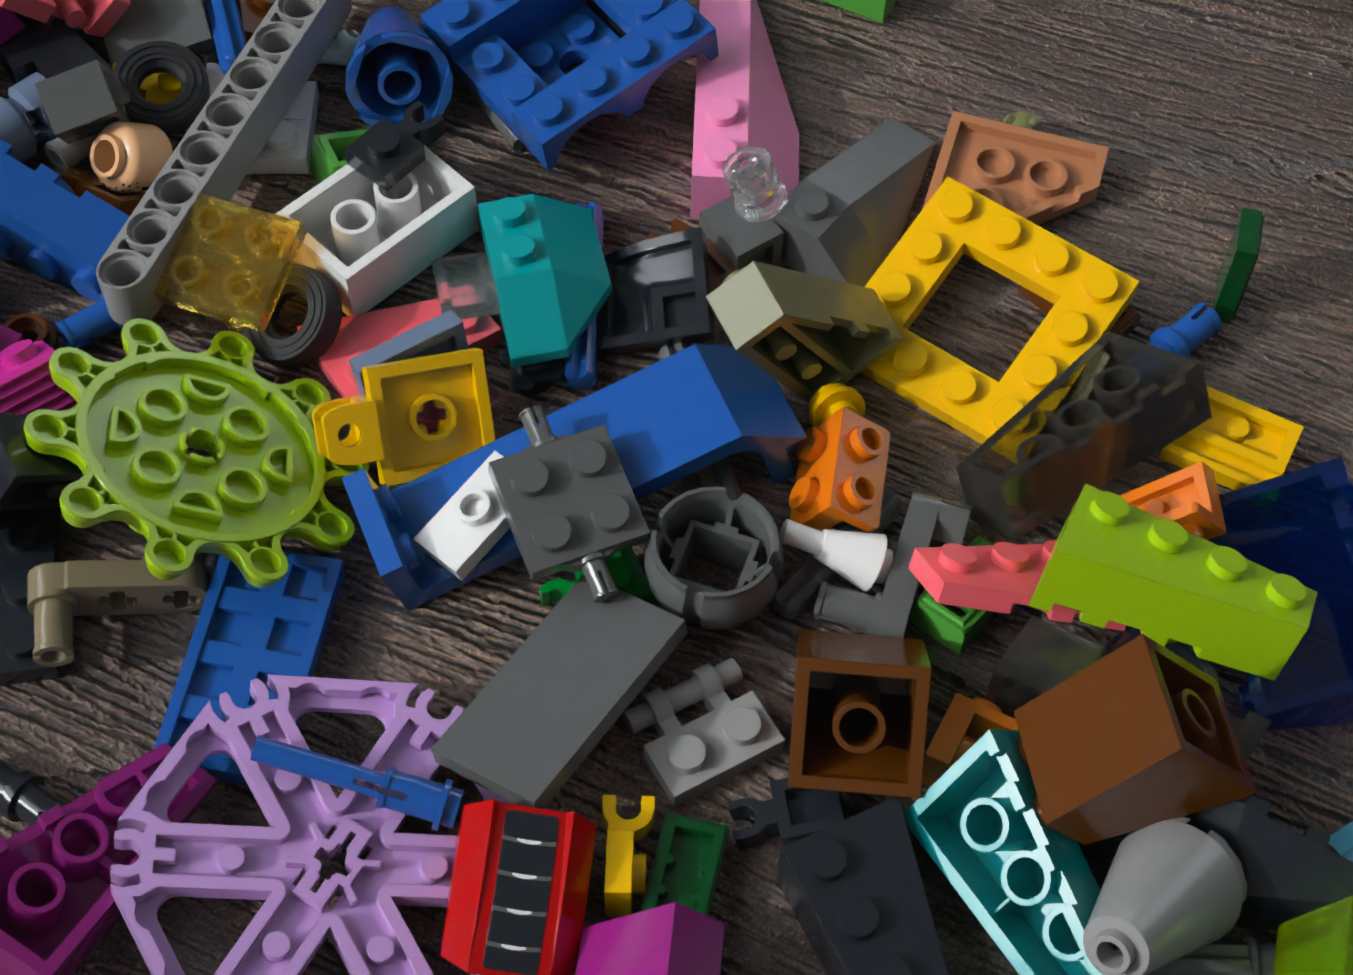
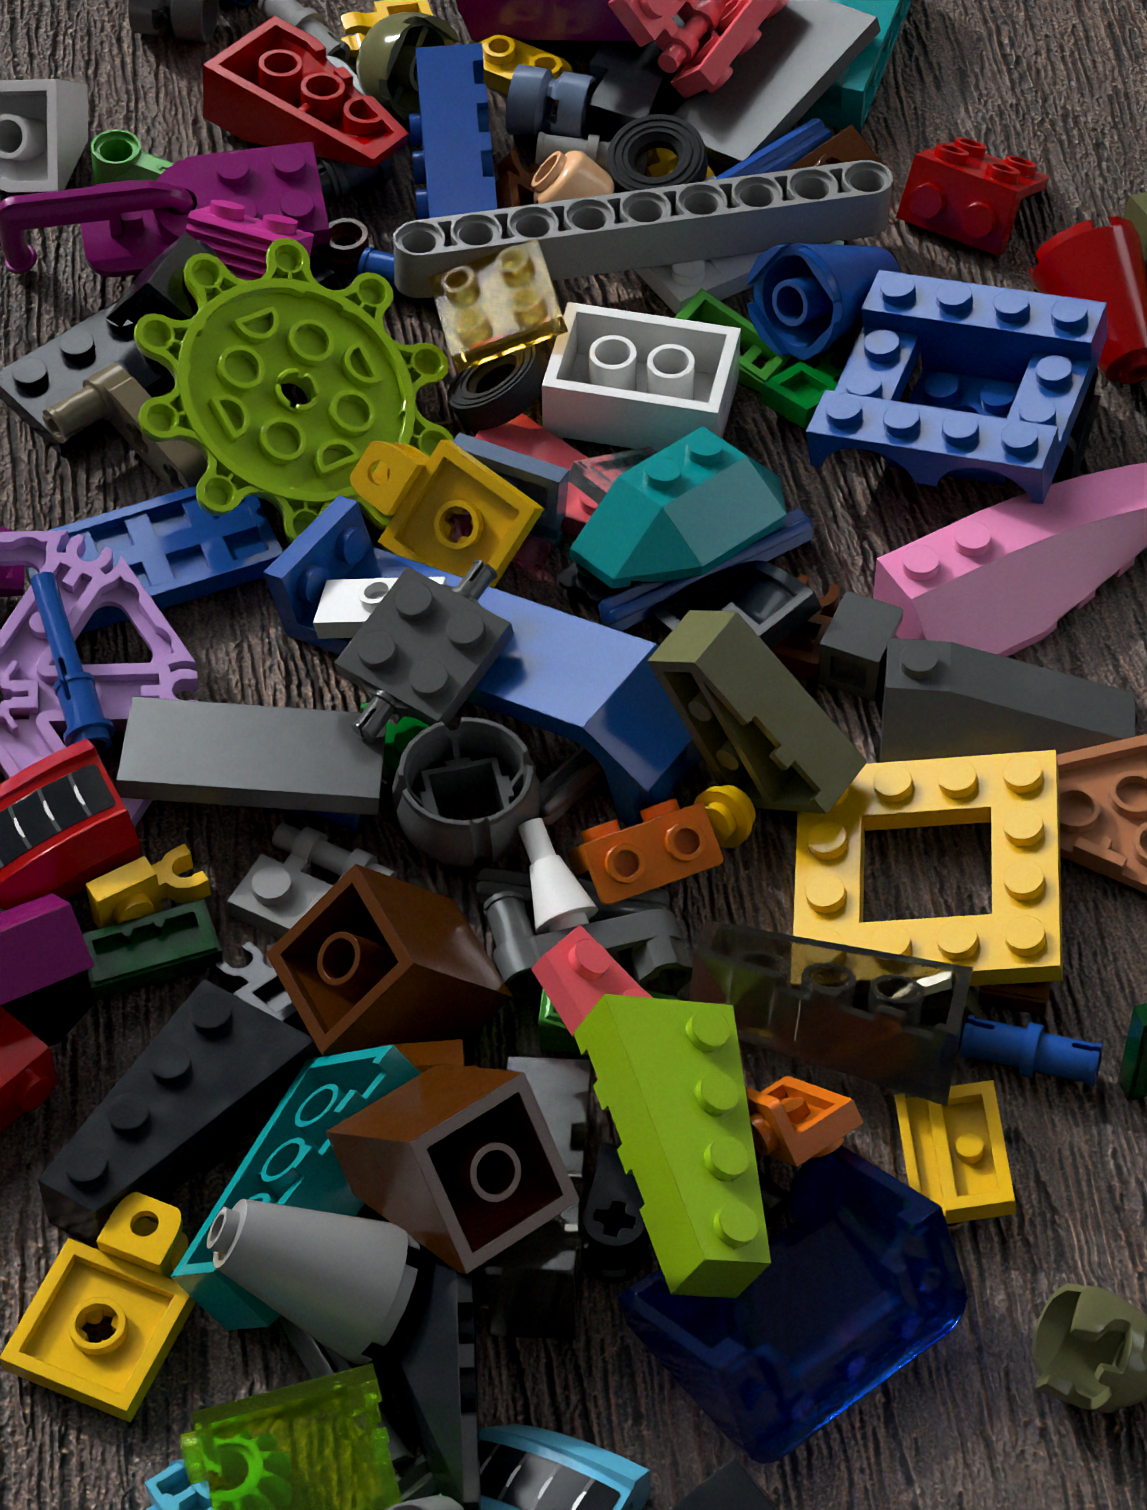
camera: 60 degrees right, 5 degrees down
(83, 100) = (576, 117): dark grey brick -> none
(392, 151) = (701, 332): black plate -> none
(468, 134) = (800, 387): none -> green plate
(755, 184) = (892, 600): clear bush -> none

